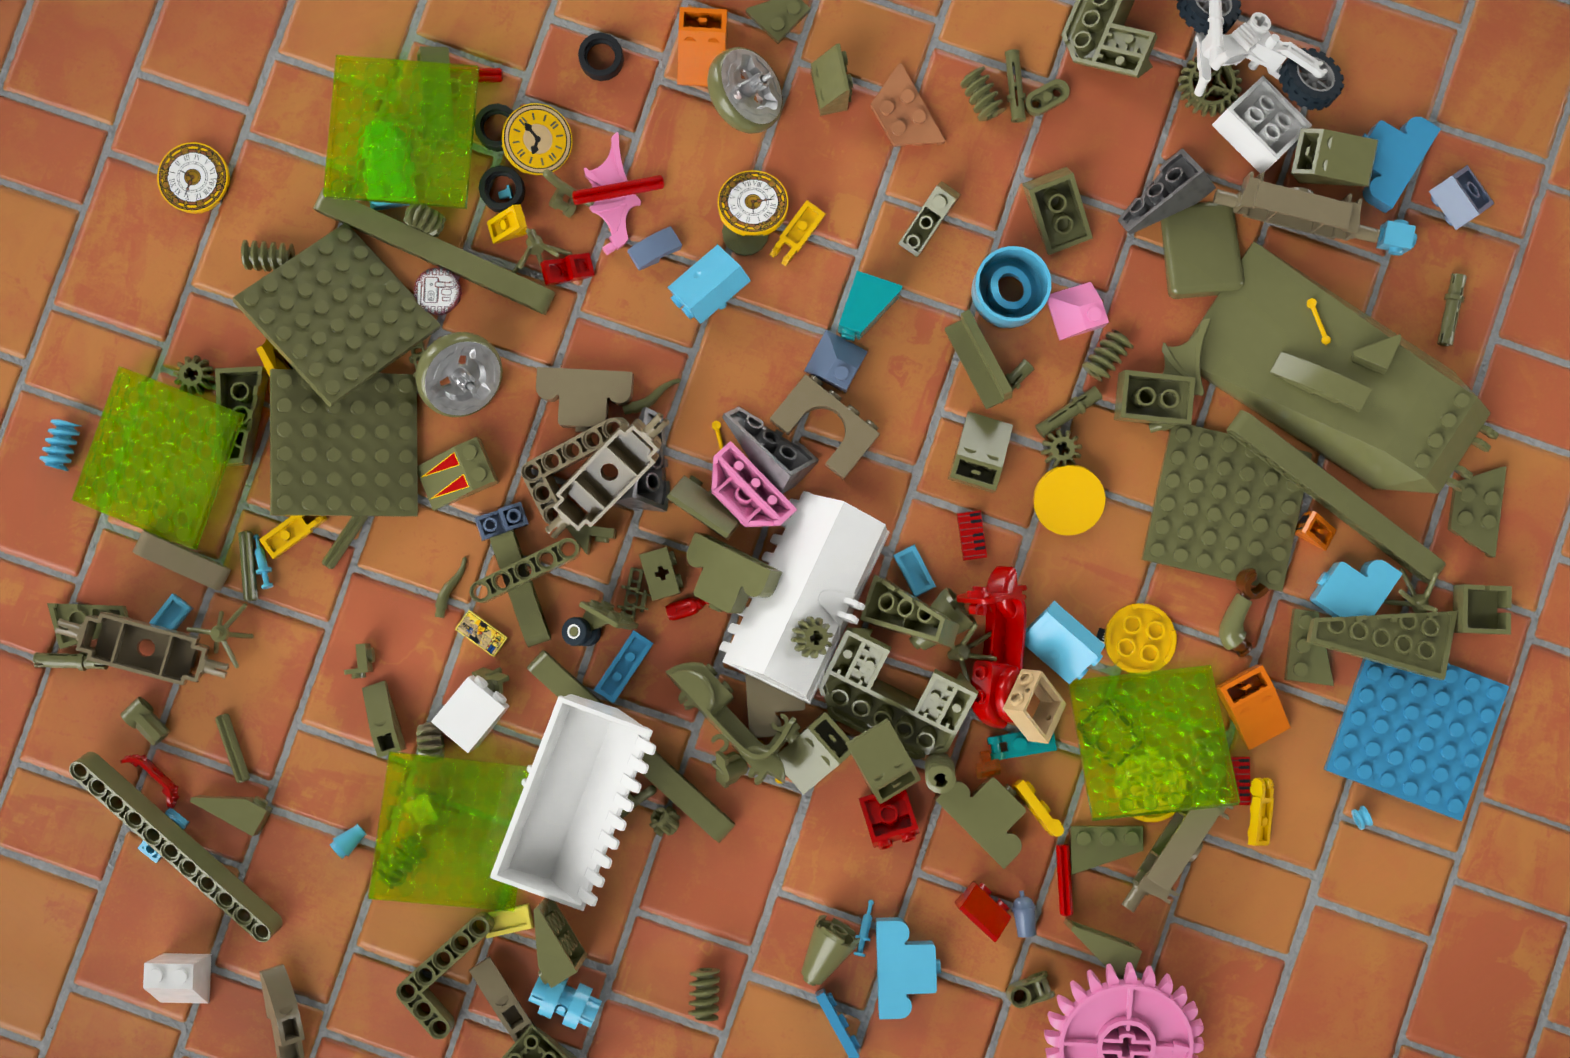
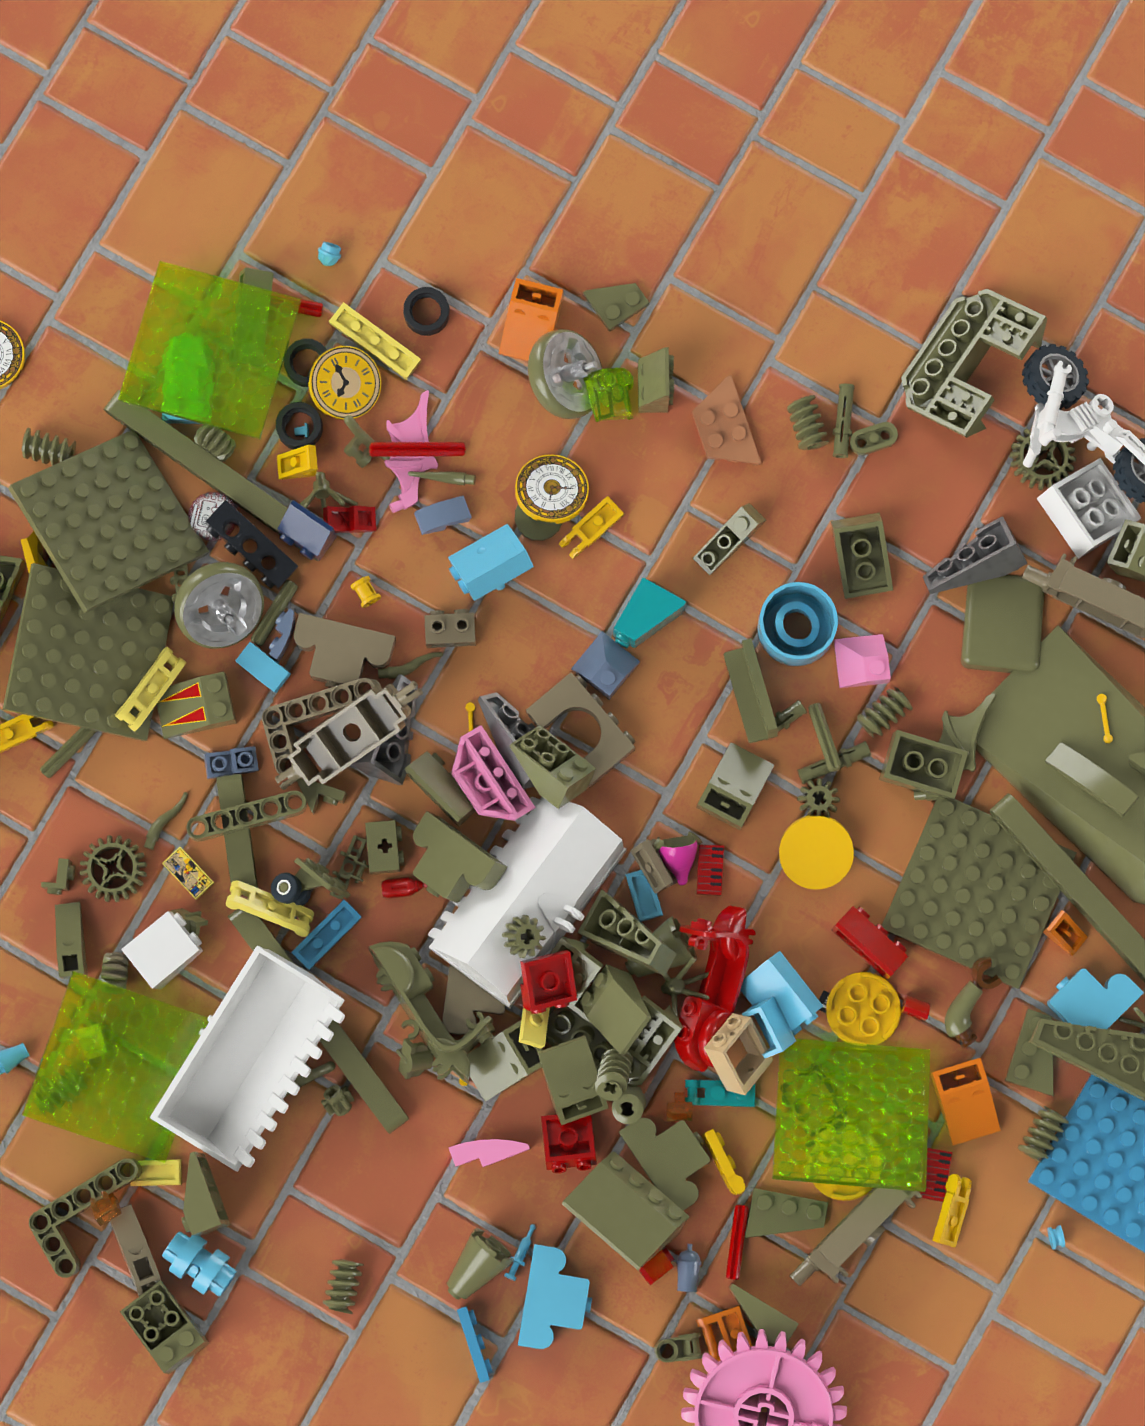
camera: 10 degrees right, 5 degrees down
(390, 637) = (119, 859): none -> olive gear
(410, 467) = (150, 689): none -> light yellow plate
(450, 286) = (226, 515): none -> black brick
(466, 967) = (106, 1208): none -> clear orange tile
(497, 19) = (329, 253): none -> medium azure plate
(513, 372) = (276, 608): none -> olive axle
(513, 425) = (263, 667): none -> medium azure slope
(527, 287) = (306, 531): none -> slope
(527, 382) = (285, 627): none -> sand blue slope
(557, 94) = (375, 341): none -> light yellow plate
(559, 652) = (267, 907): none -> light yellow plate
(596, 335) = (365, 592): none -> yellow bush
(651, 211) = (457, 478): none -> olive animal
(682, 355) = (450, 629): none -> dark tan brick
(790, 101) = (610, 393): none -> clear neon green slope
(806, 467) = (552, 766): none -> olive slope
(814, 840) = (486, 1150): none -> bright pink slope
(836, 712) = (534, 1028): none -> light yellow plate
(842, 674) = (548, 982): none -> red plate
(911, 685) = (615, 1007): none -> olive slope
(919, 542) = (652, 866): none -> dark tan panel
(921, 749) = (613, 1074): none -> olive piece
(939, 527) = (678, 854): none -> dark pink hat
(957, 875) = (626, 1210): none -> olive slope
(1056, 390) = (824, 737): none -> olive axle
(1061, 673) = (772, 1025): none -> medium azure panel
(1075, 961) = (730, 1324): none -> orange plate
(1136, 575) = (870, 942): none -> red slope
(1192, 629) = (916, 1008): none -> red slope
(1332, 724) = (1043, 1134): none -> olive piece

